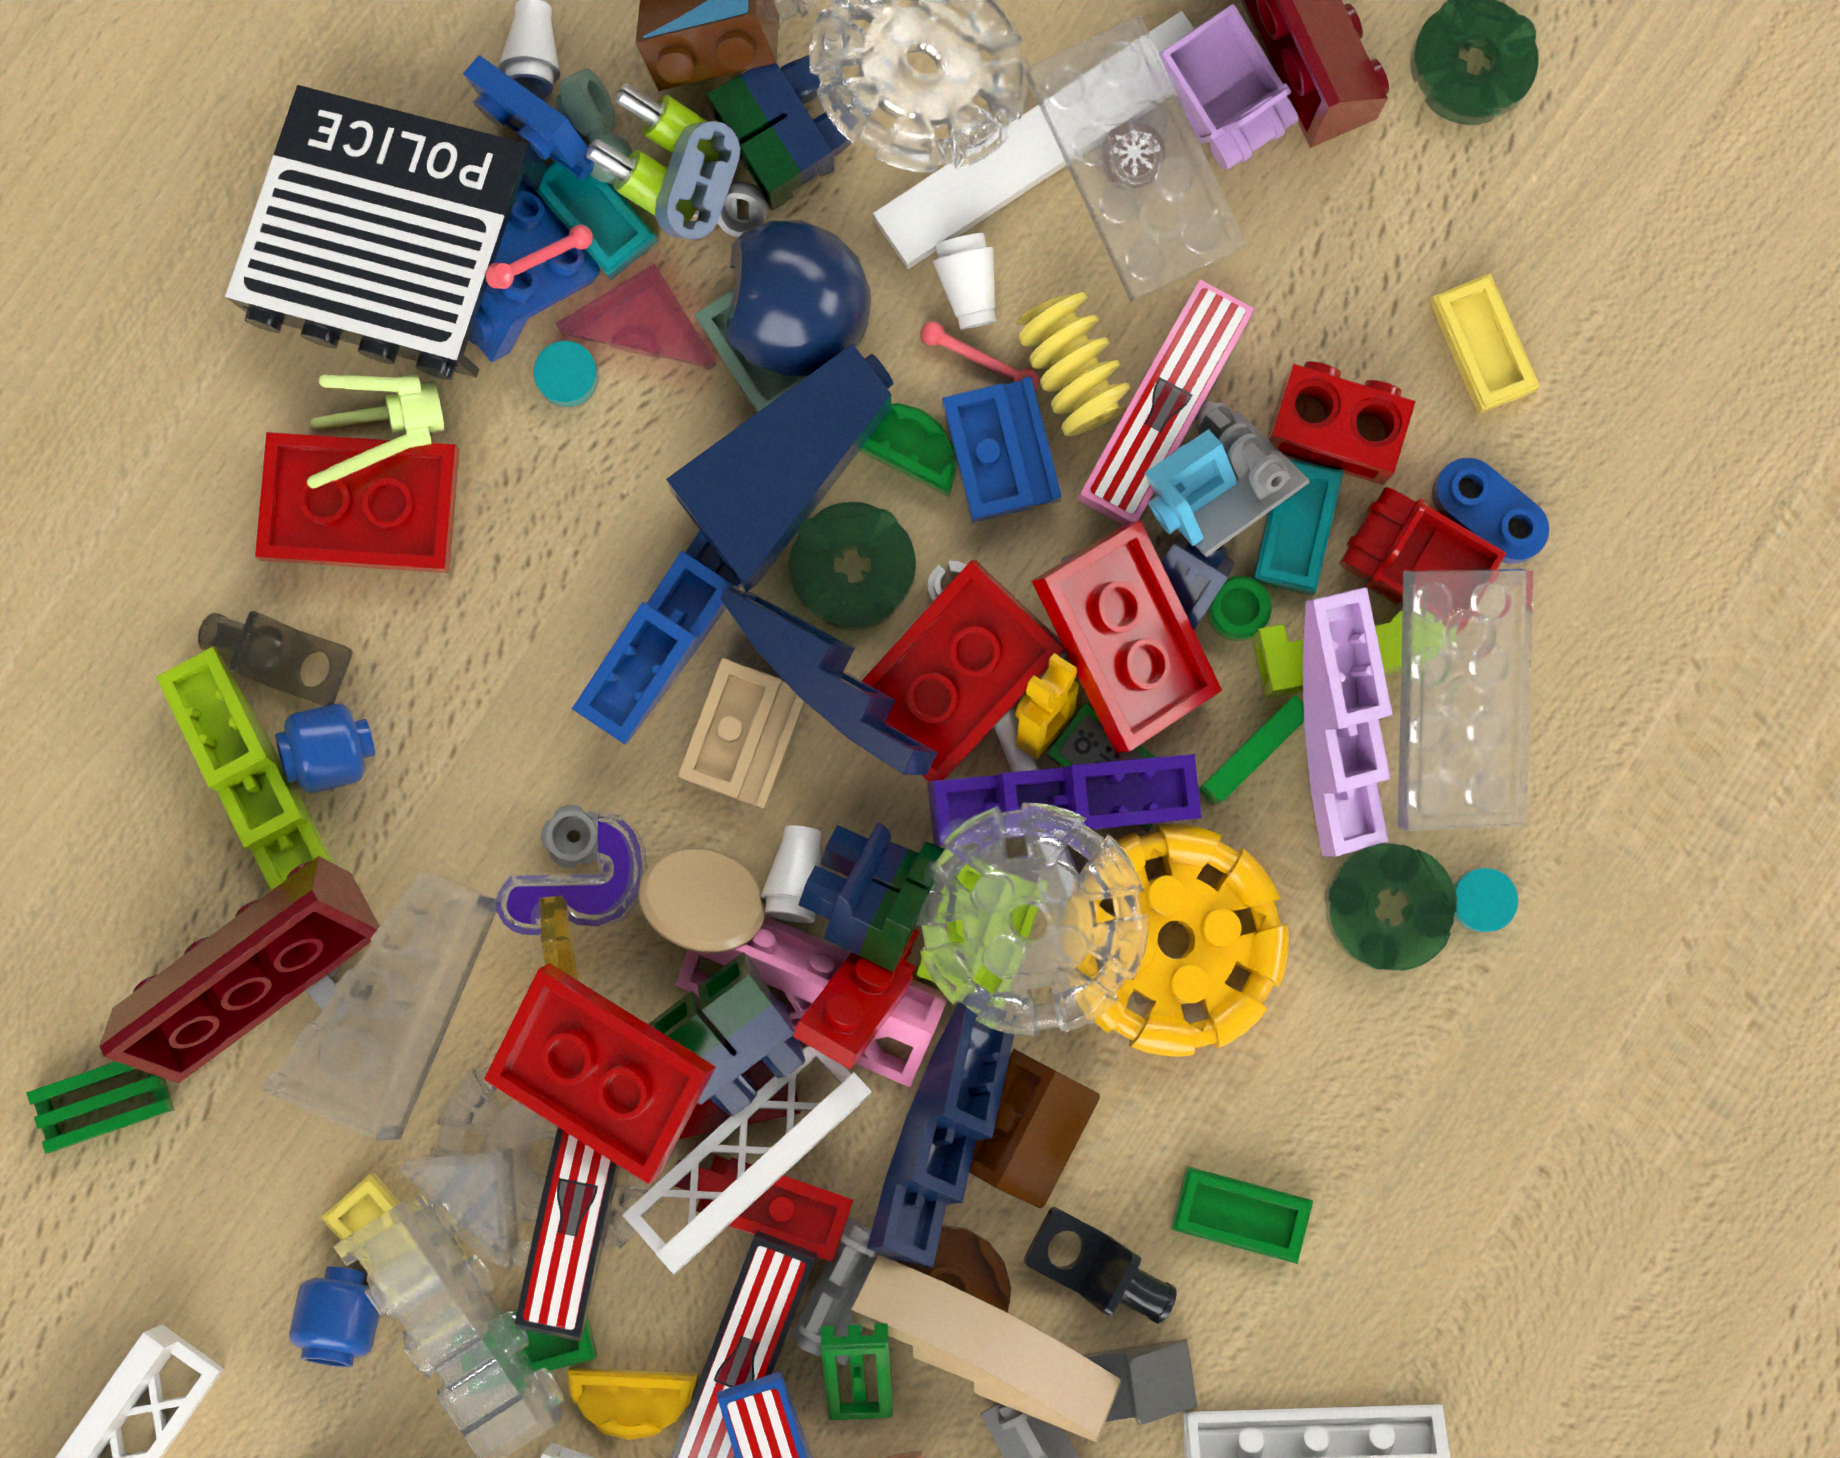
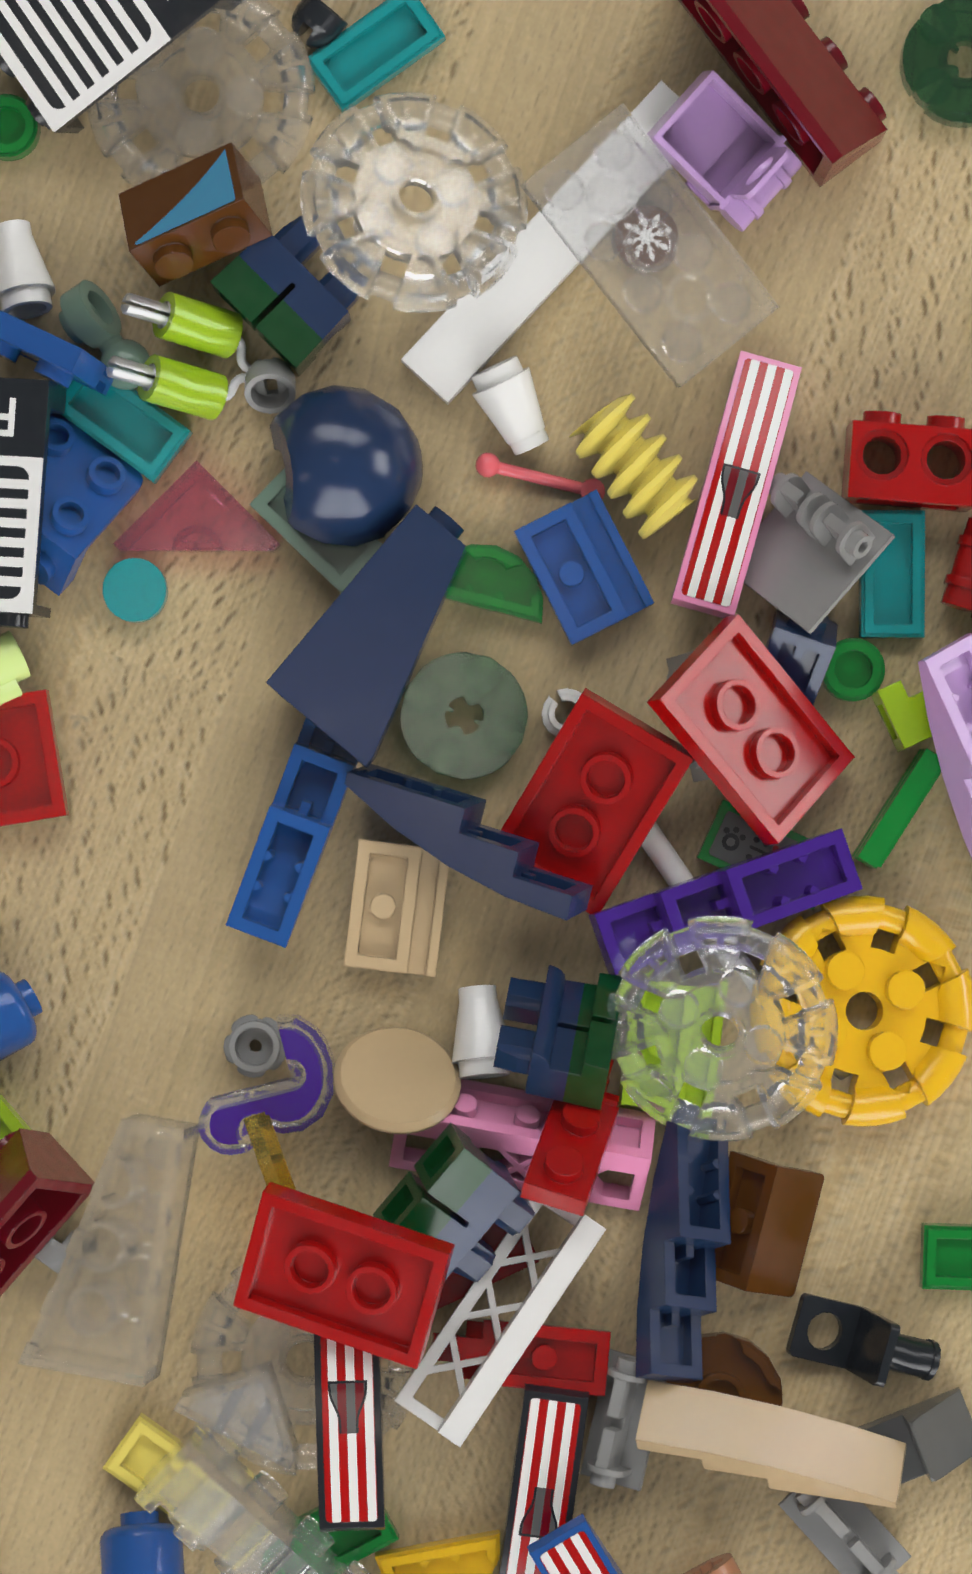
camera: 15 degrees left, 5 degrees up
(502, 274) = (55, 517): coral hinge -> none
(710, 185) = (222, 372): sand blue beam -> none
(856, 1346) = (647, 1473): green tile -> none
(1046, 707) = (687, 817): yellow plate -> none
(1189, 482) = (775, 564): medium azure bracket -> none

